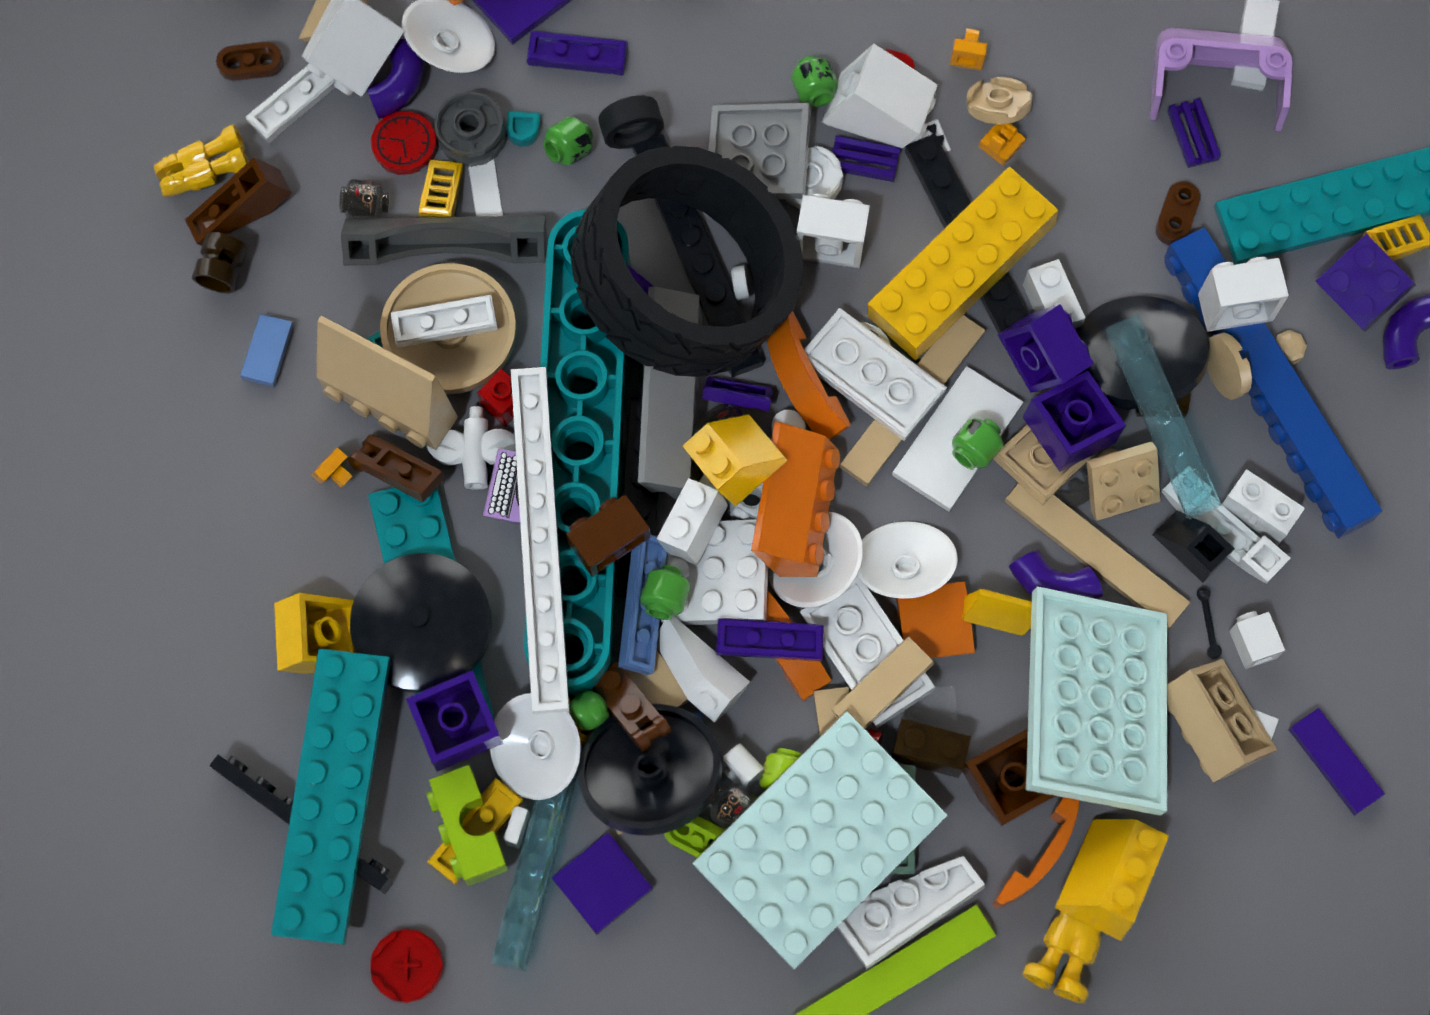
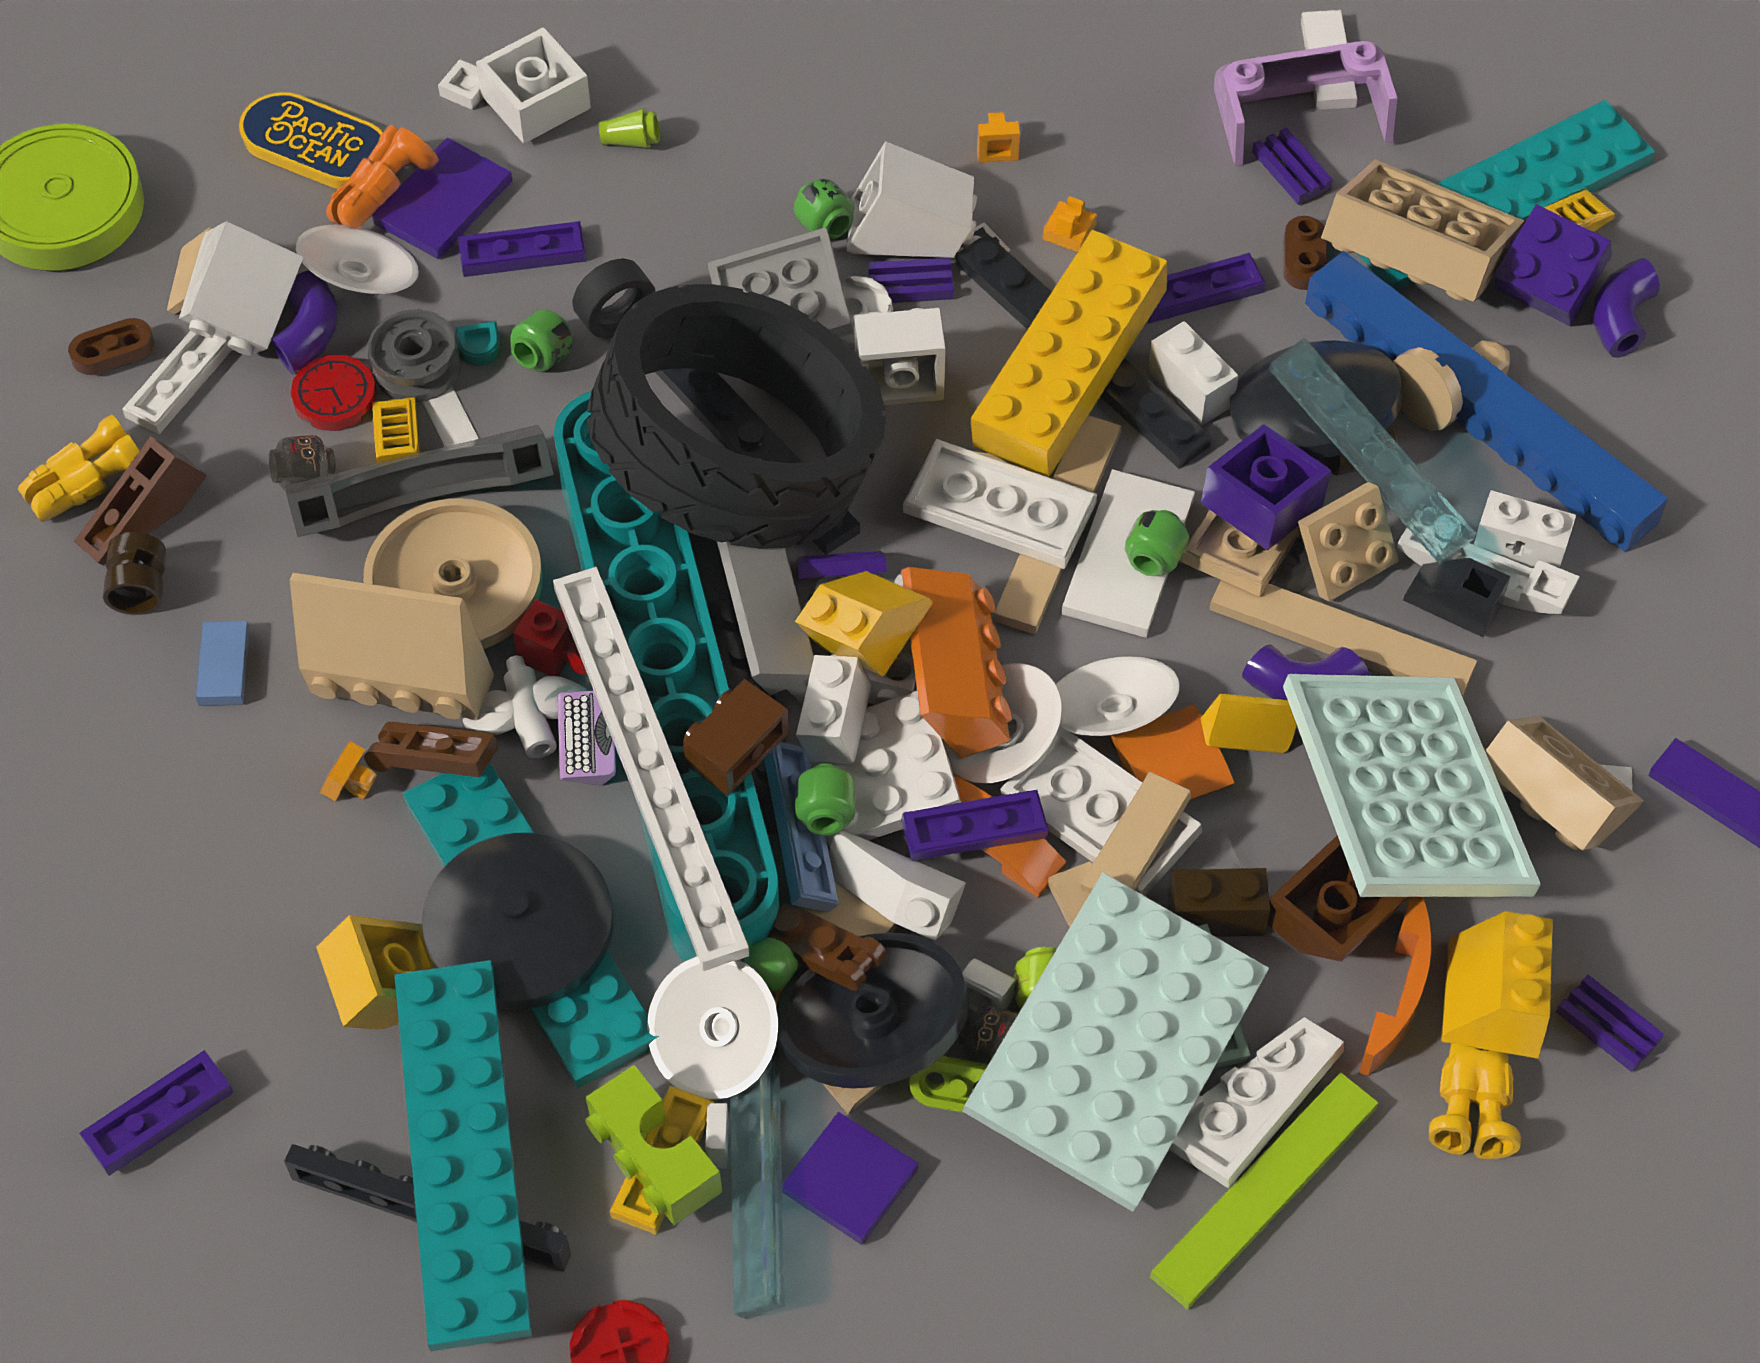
camera: 15 degrees left, 15 degrees down
(134, 697) = (156, 1112): none -> dark purple plate
(444, 321) = (451, 561): white tile -> none
(454, 721) = (599, 1016): dark purple brick -> none
(739, 282) = (803, 442): white tile -> none
(801, 382) = (915, 527): orange slope -> none
(999, 101) = (1052, 180): tan tile -> none
(1046, 348) = (1203, 413): dark purple brick -> none
(1093, 223) = (1209, 286): none -> dark purple tile
(1199, 913) = (1613, 1016): none -> dark purple tile
(1214, 650) = (1525, 708): black hinge -> none
(1243, 293) = (1417, 298): white brick -> none
(1256, 639) = (1572, 680): white brick -> none
(1272, 216) = (1421, 230): none -> tan slope

